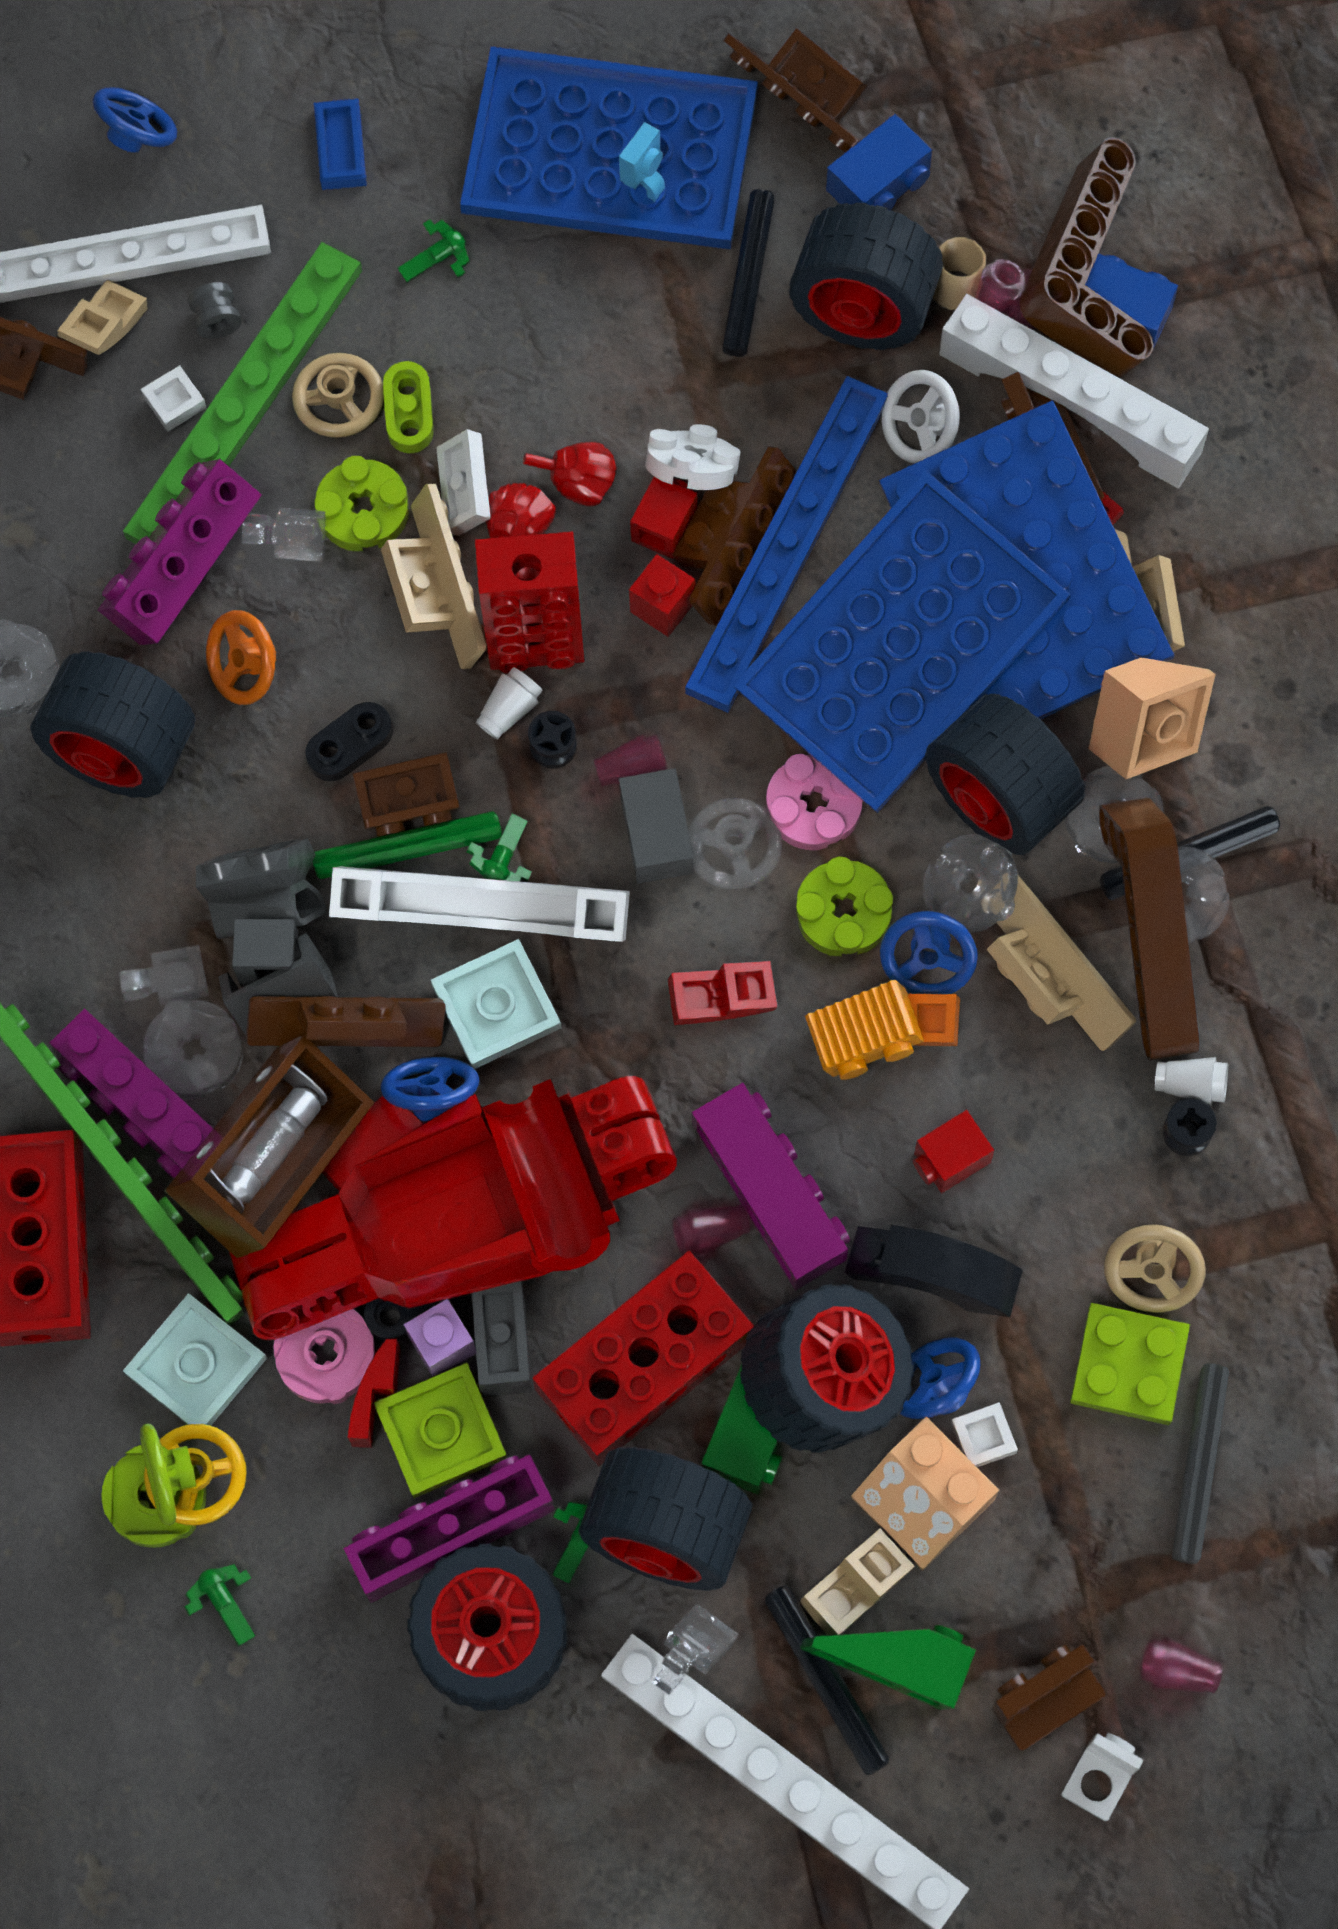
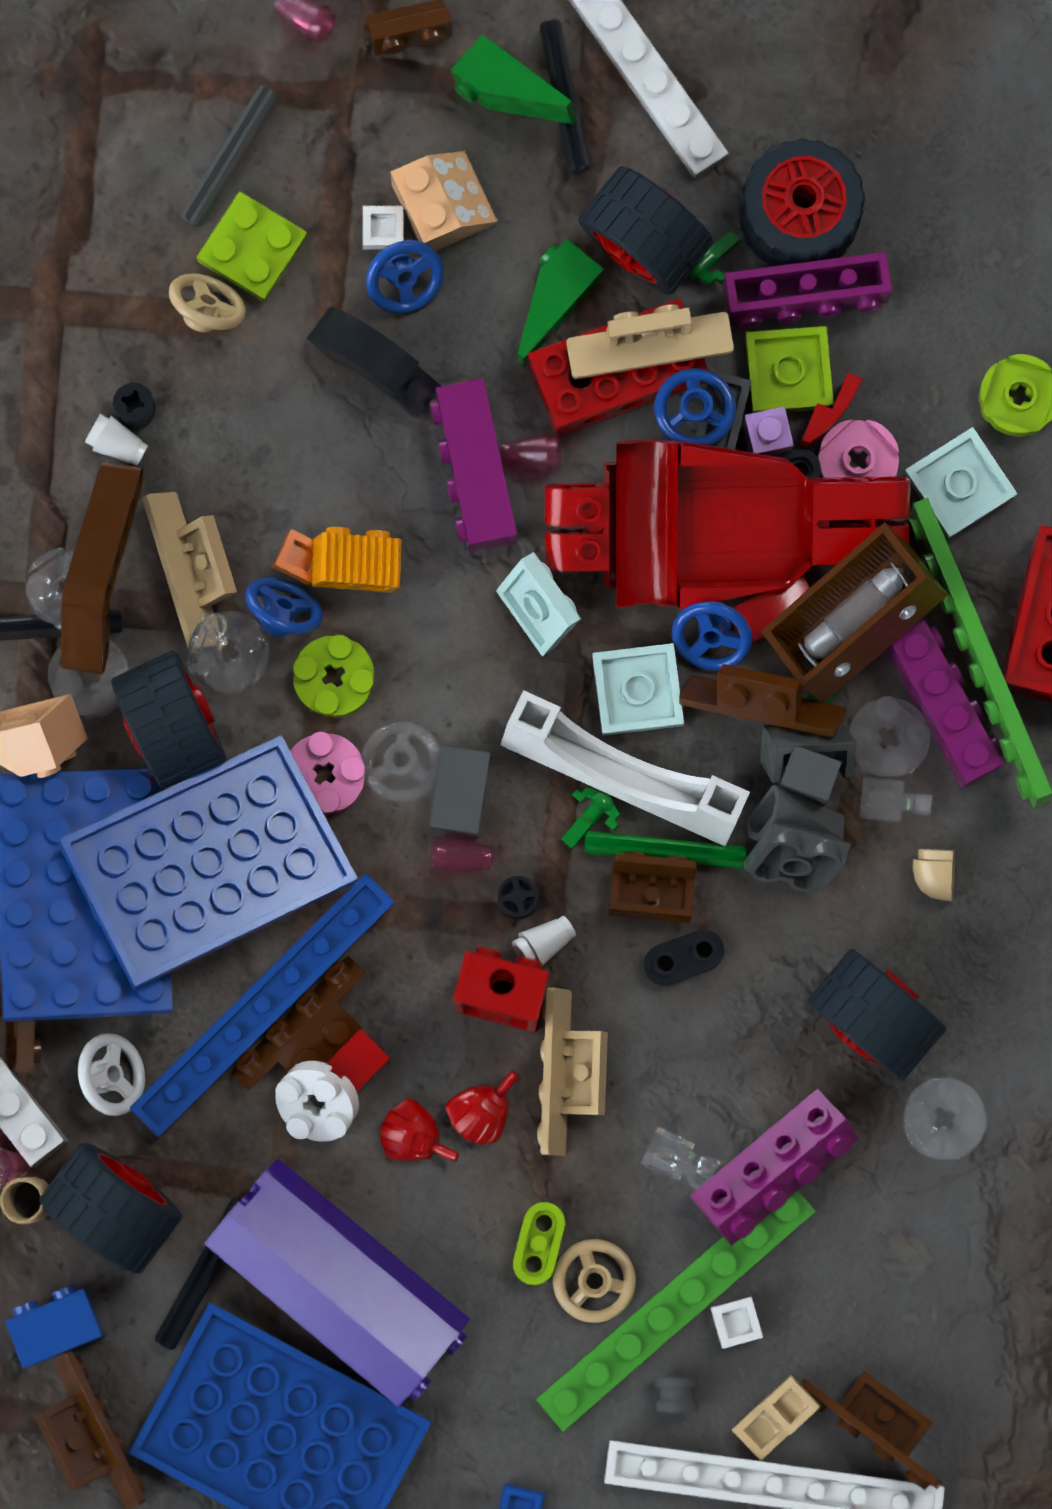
camera: 165 degrees left, 10 degrees up
(95, 918) = (935, 873): none -> tan piece
(166, 1472) = (1007, 383): lime piece -> none
(212, 1583) = (995, 317): green piece -> none
(232, 1464) = (995, 383): yellow piece -> none
(245, 656) = (743, 1056): orange piece -> none
(360, 479) = (582, 1165): lime plate -> none
(452, 243) = (450, 1392): green piece -> none
(463, 481) = (515, 1154): white plate -> none
(529, 1305) = (695, 393): none -> blue piece
(602, 294) = (339, 1283): none -> panel
(611, 1374) = (649, 341): none -> tan bracket
(641, 160) = (262, 1385): medium azure plate -> none
(651, 1056) = (538, 603): none -> light aqua plate
(661, 595) = (385, 989): red brick -> none
(694, 1641) = (650, 148): clear plate -> none
(722, 994) = (455, 639): slope -> none
(826, 1368) = (485, 299): black wheel -> none
(856, 1584) = (517, 156): tan slope -> none
(952, 1152) = (325, 446): red brick -> none

